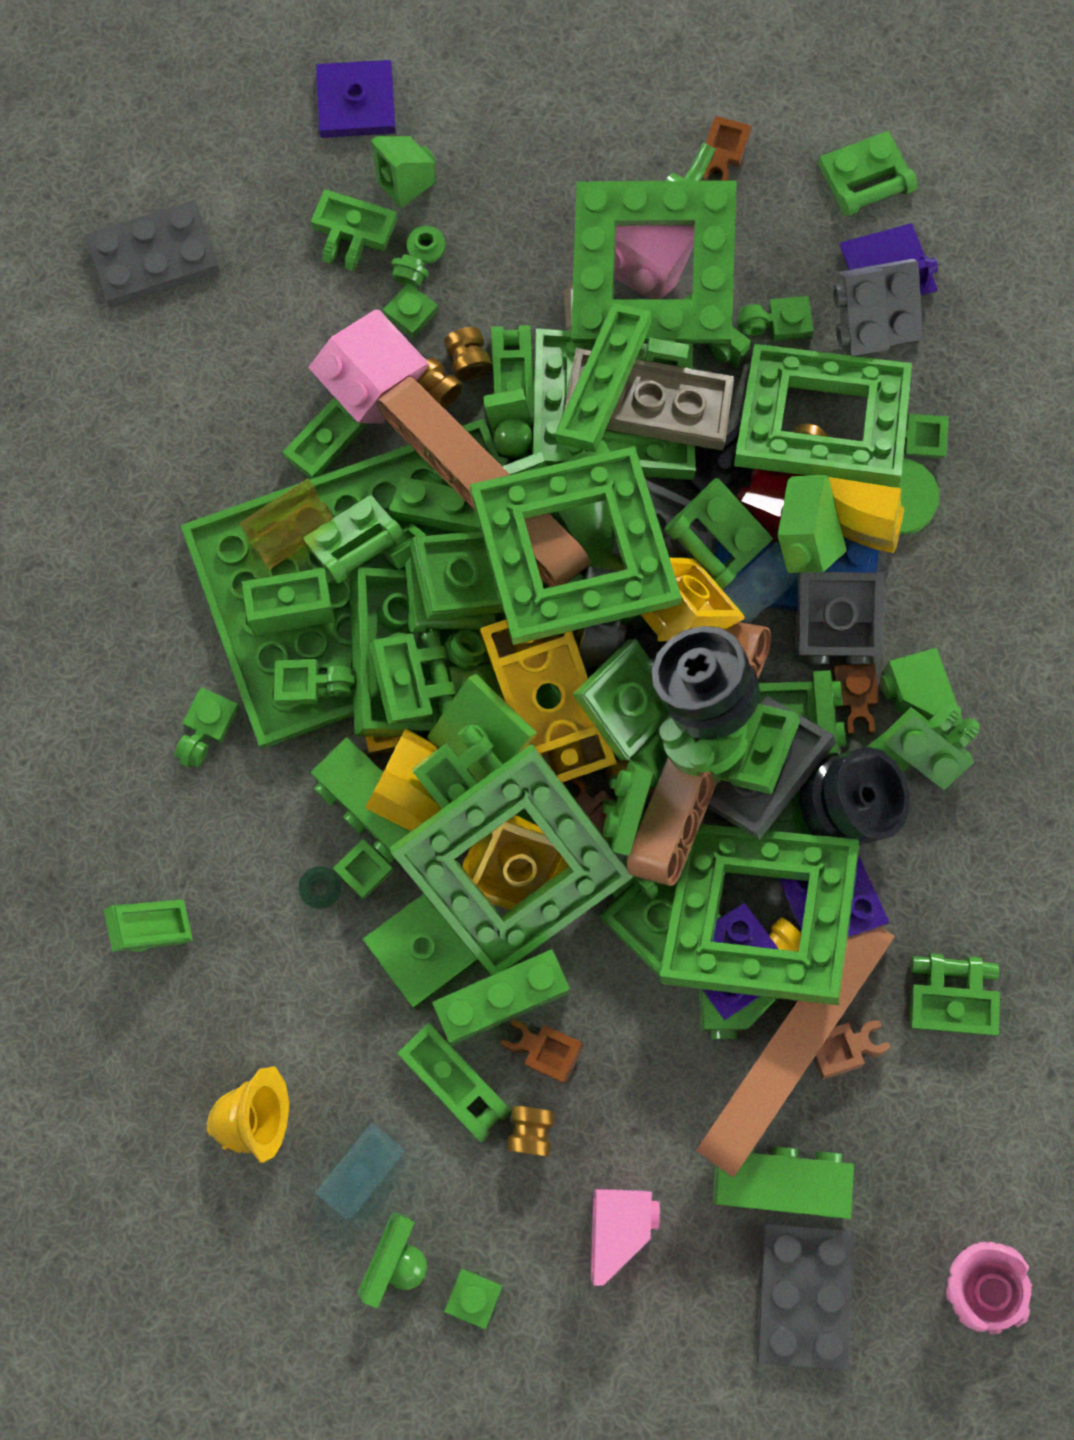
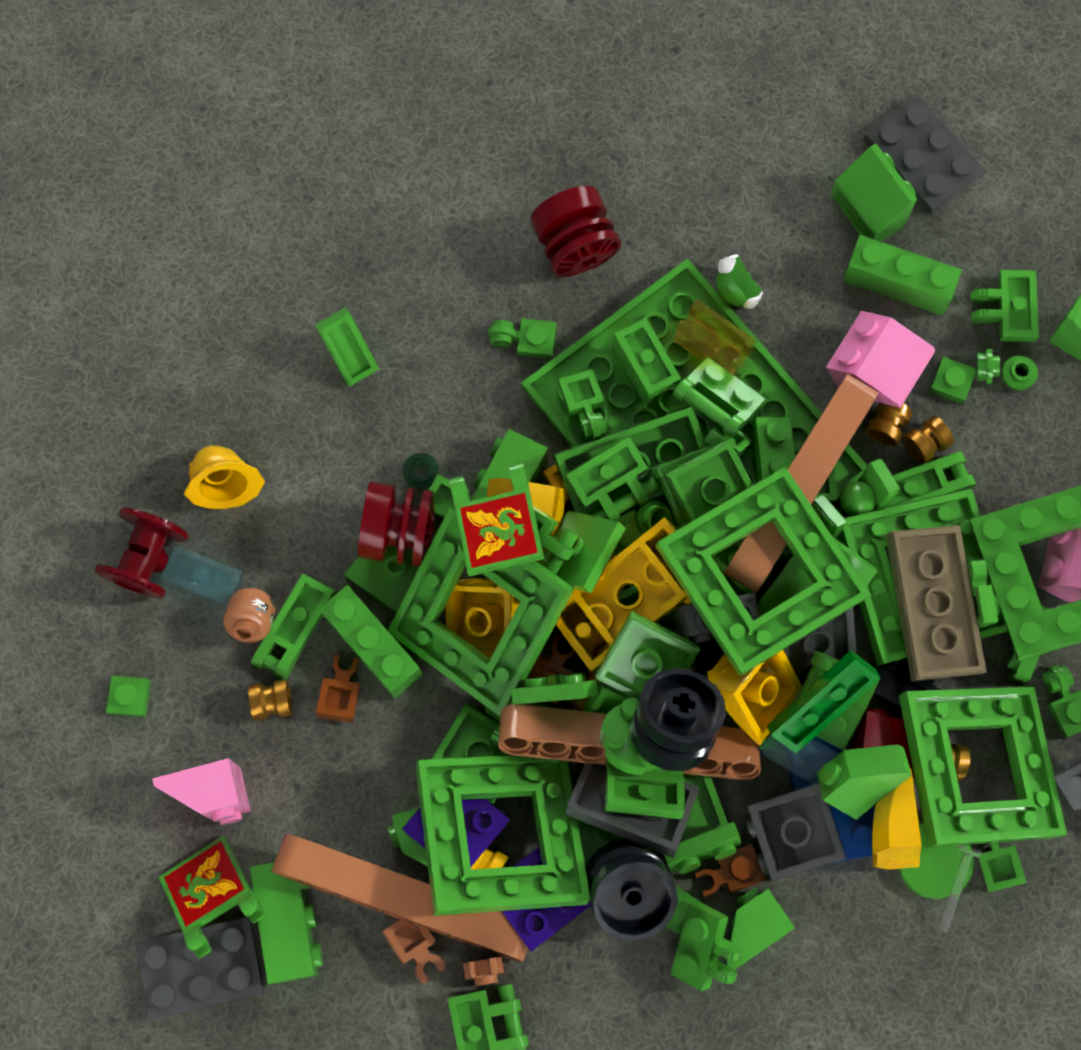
camera: 75 degrees right, 0 degrees up
(96, 630) = (575, 231): none -> dark red wheel
(184, 312) = (874, 195): none -> bright green slope
(229, 485) = (736, 284): none -> bright green hair
(281, 317) = (902, 275): none -> bright green brick
(315, 1232) = (144, 553): none -> dark red hose
(323, 440) = (803, 346): bright green plate -> none
(385, 919) = (395, 524): none -> dark red wheel
(393, 1262) = (138, 628): bright green tile -> none
(427, 1127) = (249, 615): none -> nougat head
(437, 805) = (497, 528): none -> flag
(603, 377) = (934, 553): bright green plate -> none
(723, 1263) = (205, 889): none -> flag
(724, 536) = (823, 702): none -> green plate
(893, 979) = (484, 971): none -> nougat plate
(935, 483) = (957, 886): none -> clear piece

